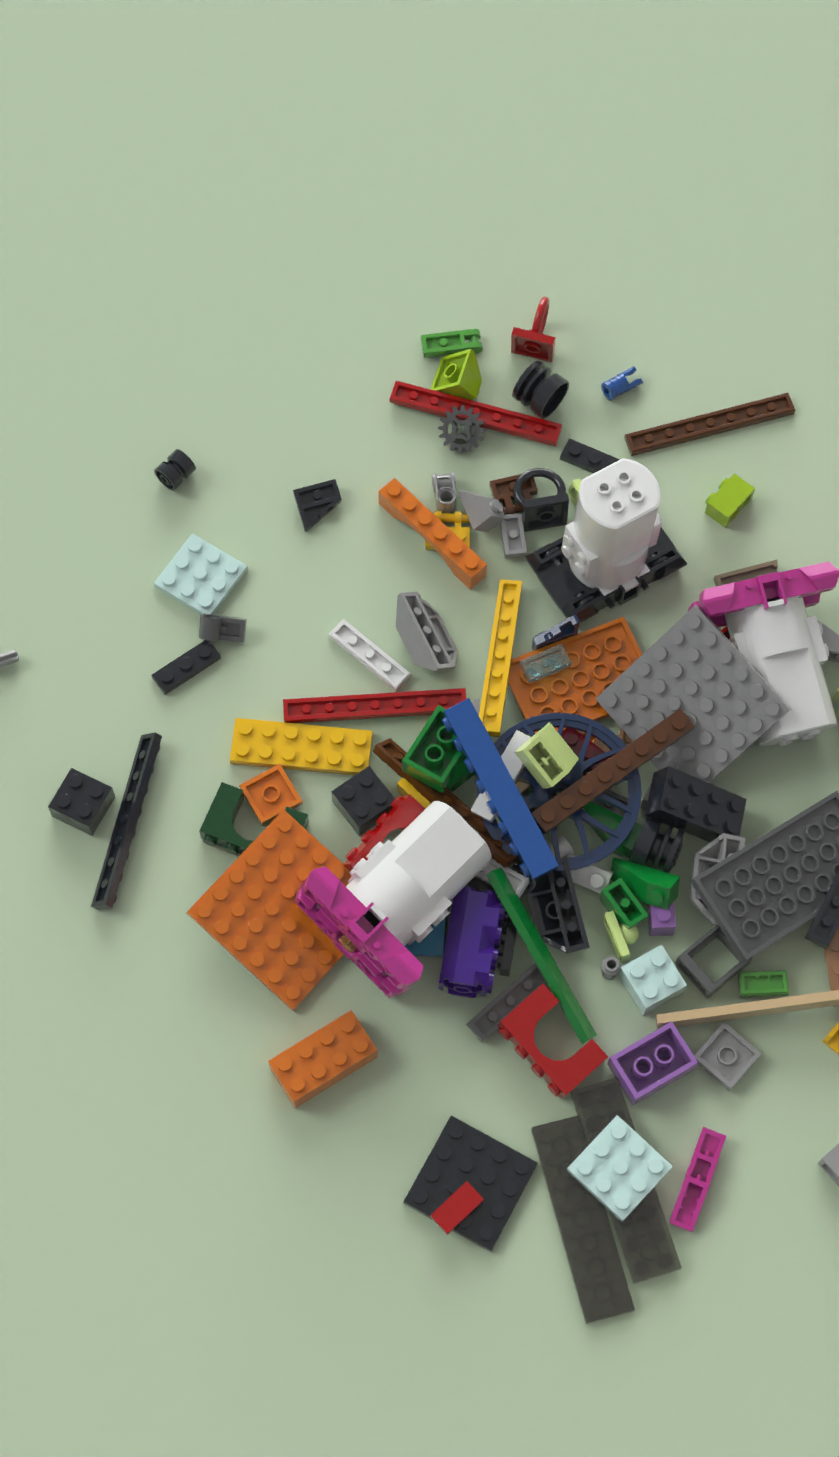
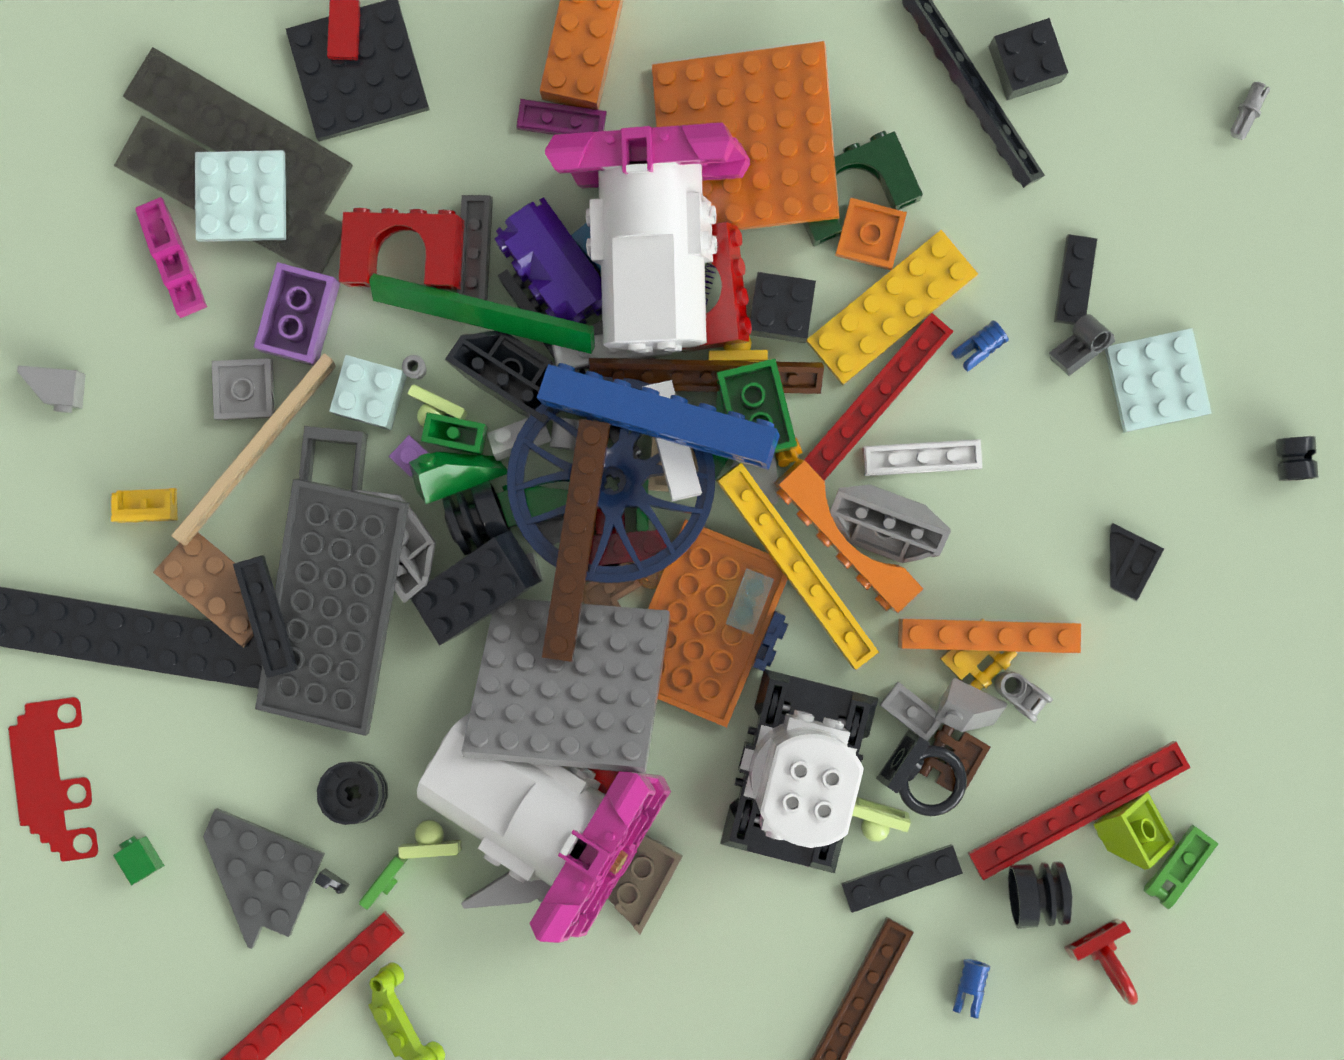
camera: 140 degrees right, 20 degrees up
(270, 679) = (985, 342): none -> blue hinge
(380, 1032) = (558, 118): none -> magenta tile
(454, 435) = (1060, 770): dark grey gear -> none
(457, 612) = (808, 494): none -> orange arch
(547, 756) = (644, 489): yellowish green slope -> none
(729, 500) = (745, 958): lime brick -> none
(763, 983) = (270, 487): bright green plate -> none

